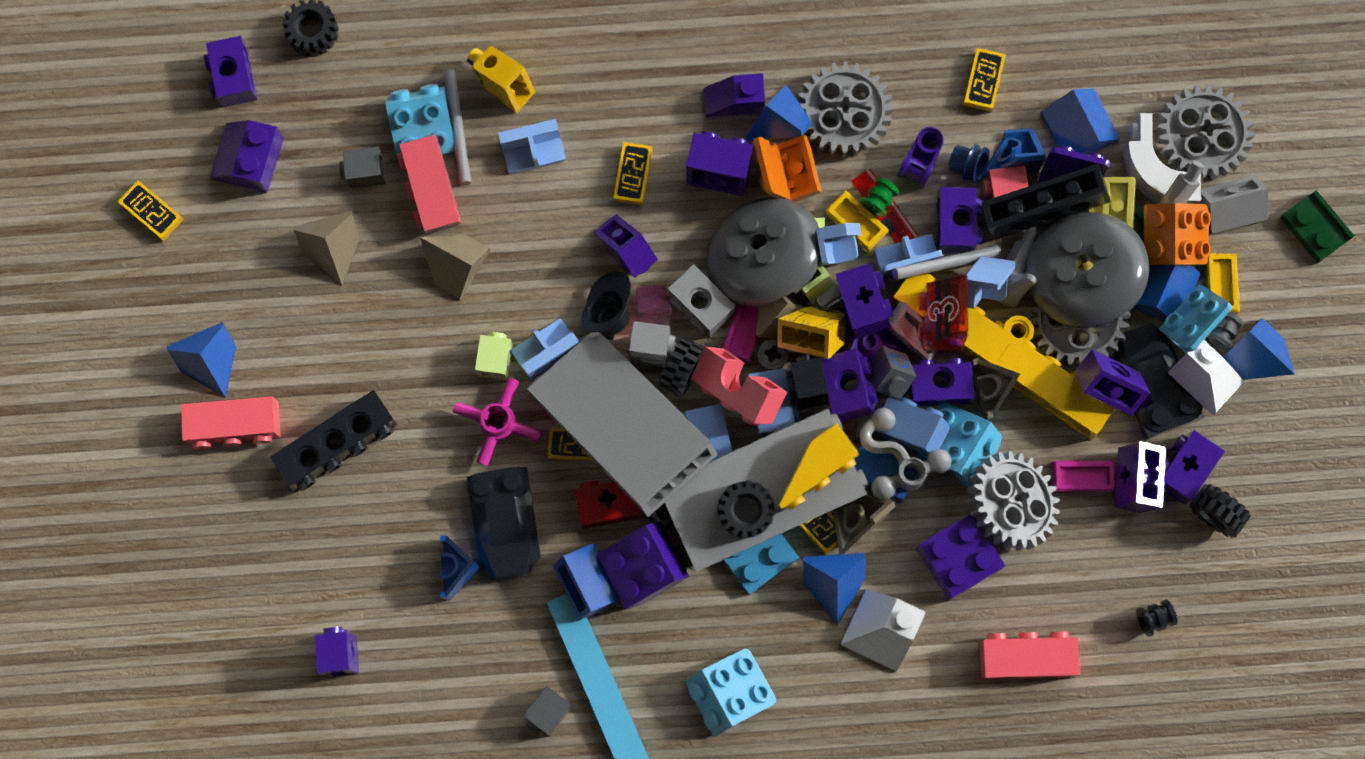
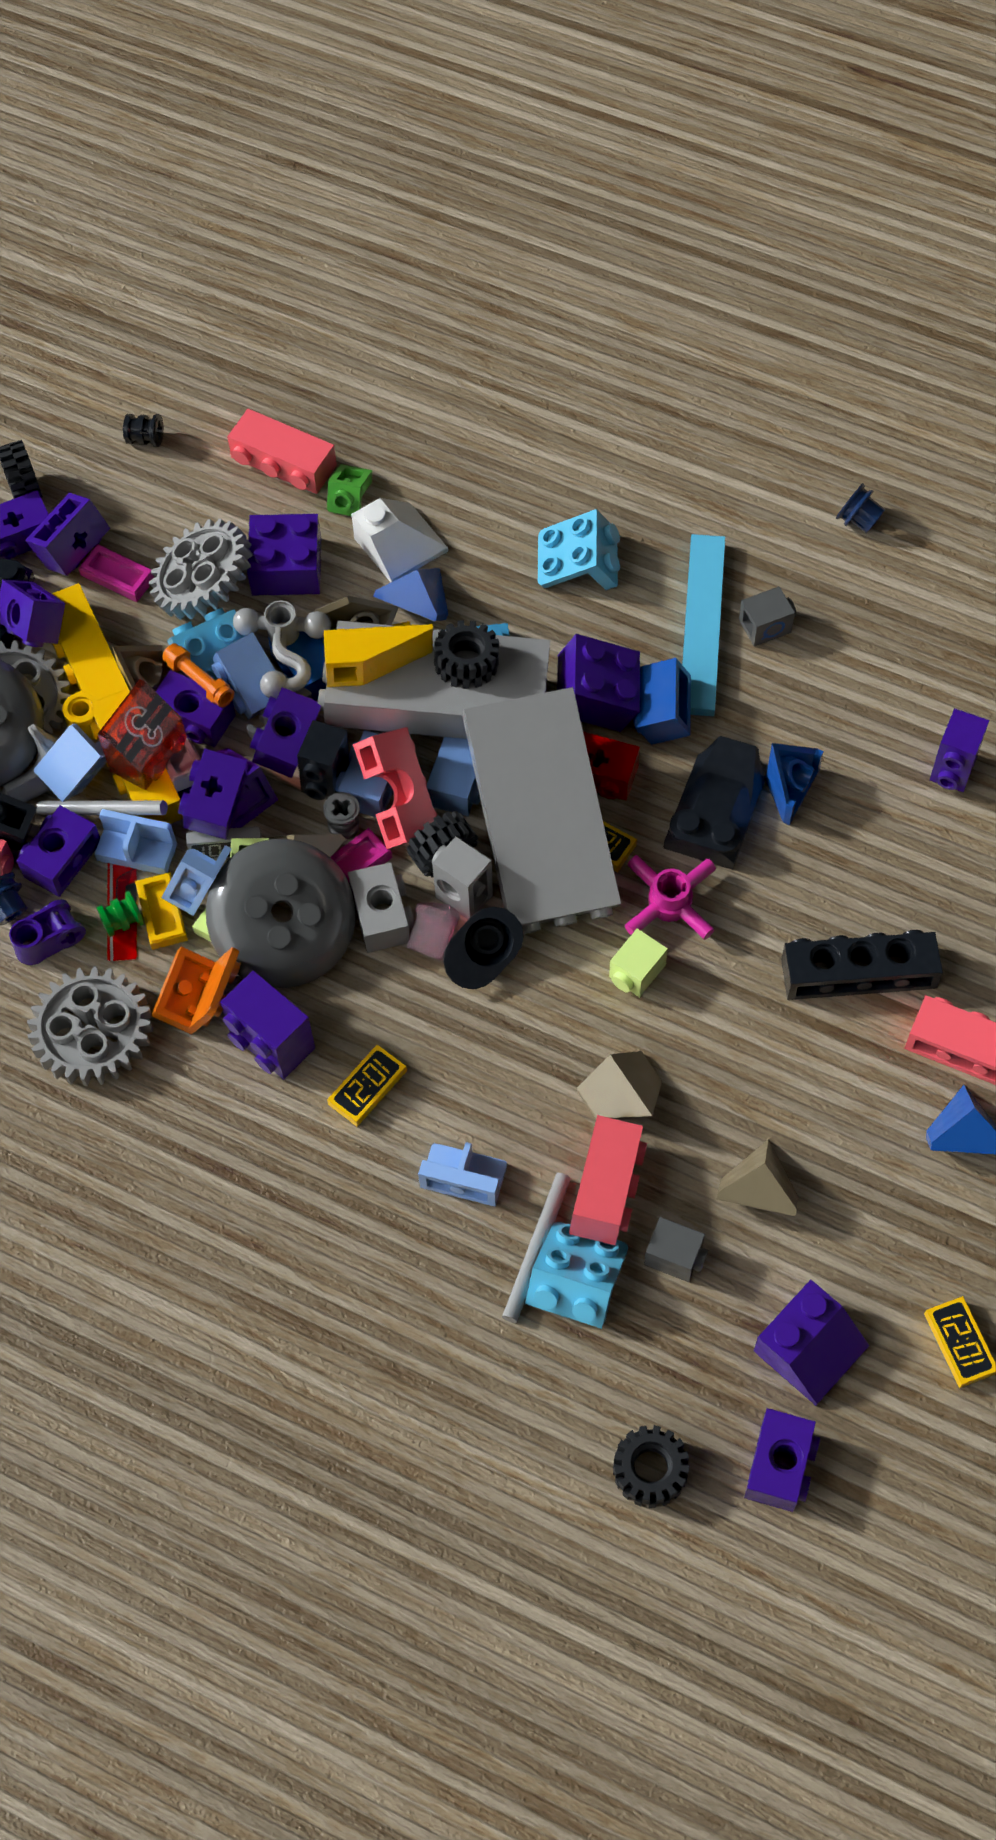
camera: 150 degrees left, 15 degrees down
(502, 77) = (447, 1250): yellow torso -> none
(544, 348) = (575, 946): light blue panel -> none
(626, 245) = (425, 1007): dark purple slope -> none
(735, 96) = (197, 1103): dark purple slope -> none
(780, 118) = (168, 1043): blue slope -> none
(812, 331) = (283, 798): yellow torso -> none
(891, 372) = (233, 729): dark grey brick -> none
(922, 392) = (216, 690): none -> orange bar
(953, 653) = (347, 489): none -> bright green bracket

